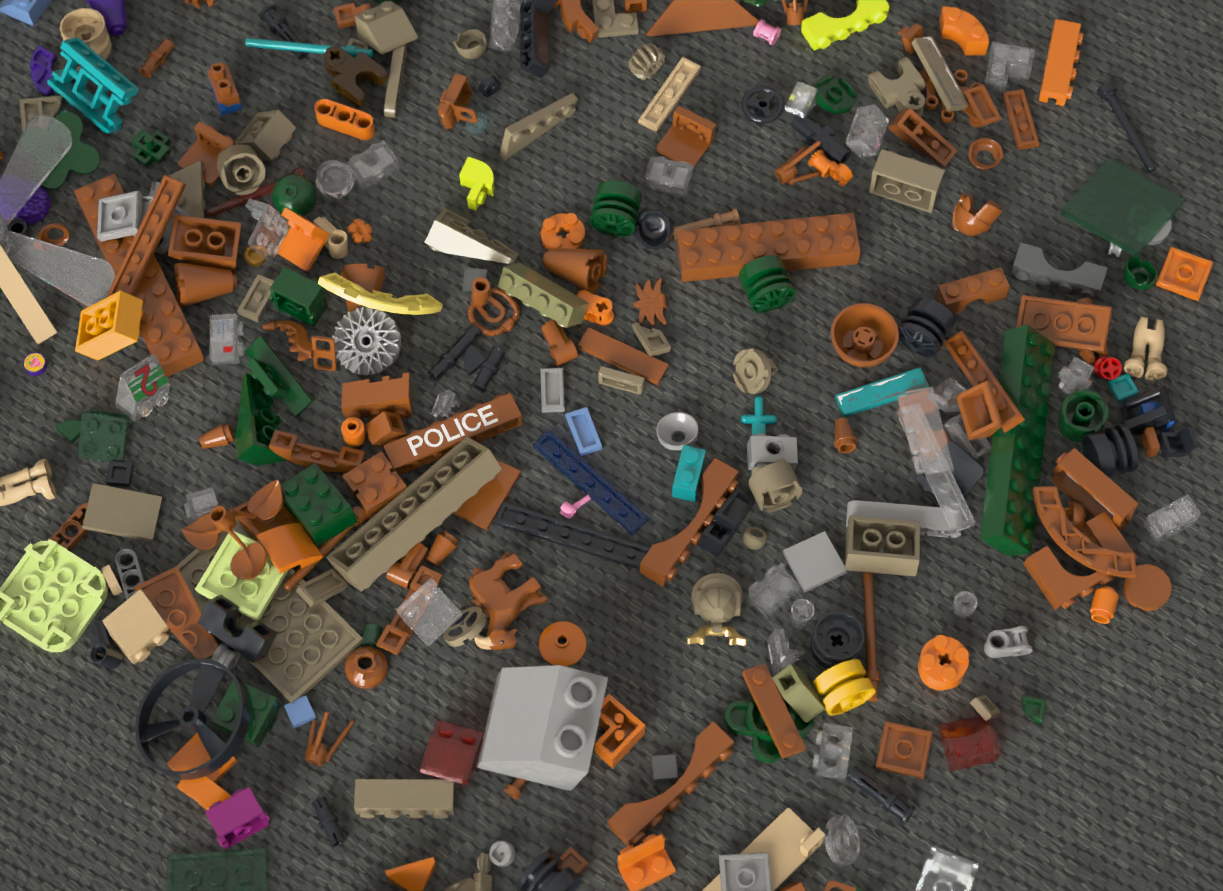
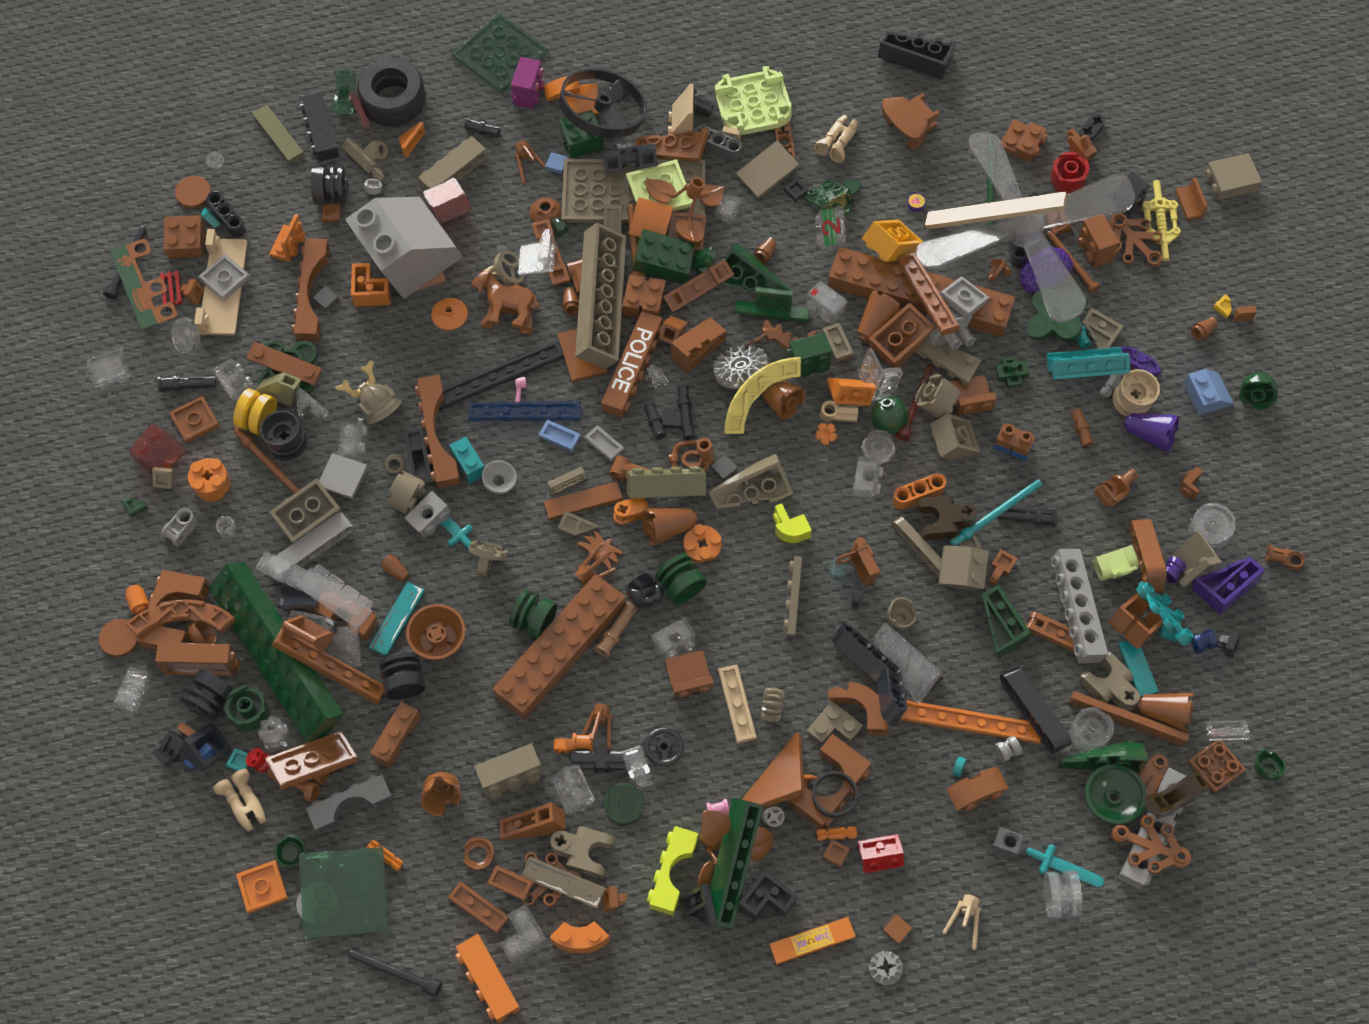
camera: 135 degrees right, 0 degrees up
(282, 467) = (703, 259): none -> dark green bracket
(353, 432) = (690, 313): orange brick -> none
(685, 287) = (586, 572): none -> dark orange plant
(799, 608) = (320, 437): clear wheel -> none
(1065, 226) = (389, 858): none -> orange axle

